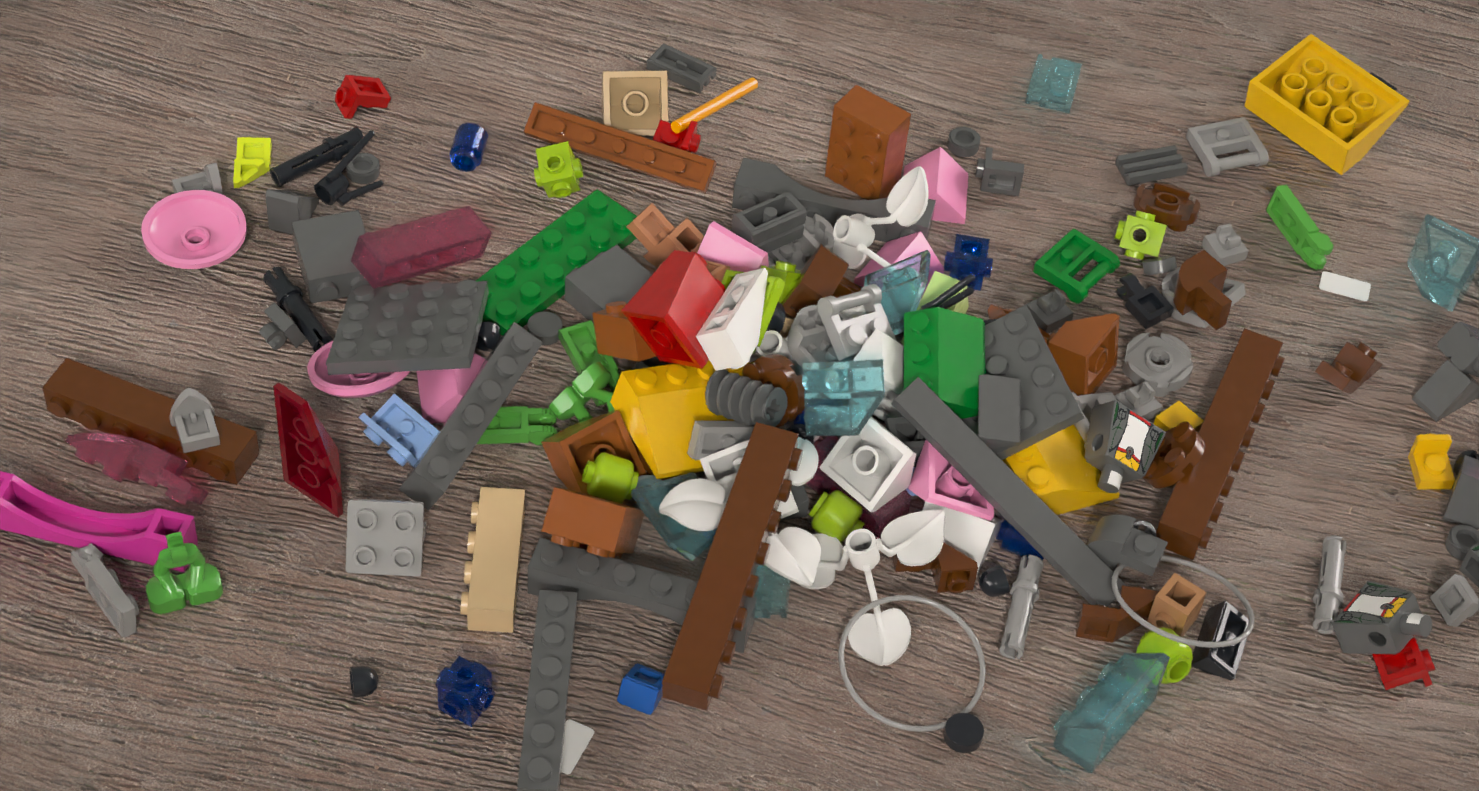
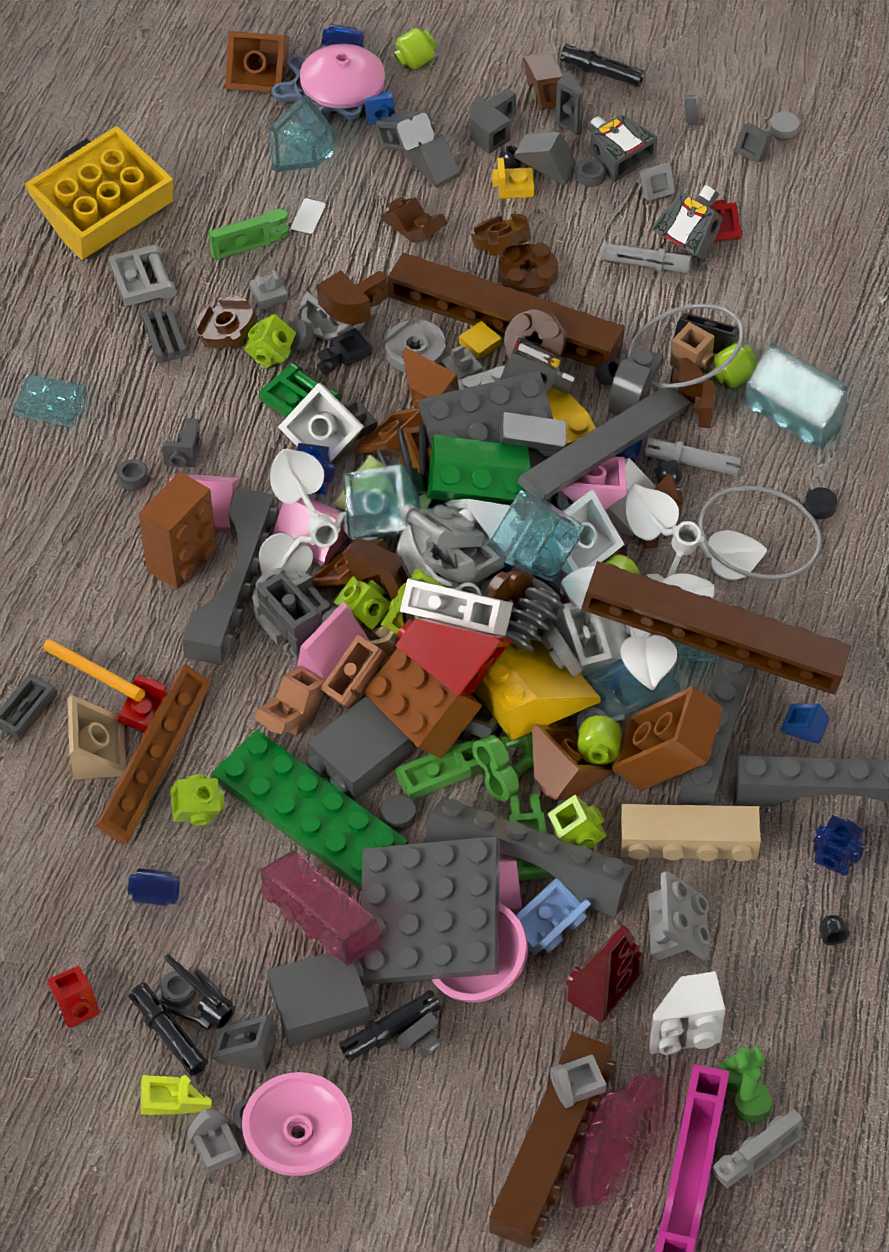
camera: 85 degrees left, 5 degrees up
(259, 527) = (688, 1015): none -> white slope
(505, 455) = (578, 823): none -> lime brick
(1025, 270) = (322, 422): none -> white slope
(1298, 456) = (533, 256): none -> reddish brown plate
(1338, 441) = (496, 234): none -> reddish brown plate

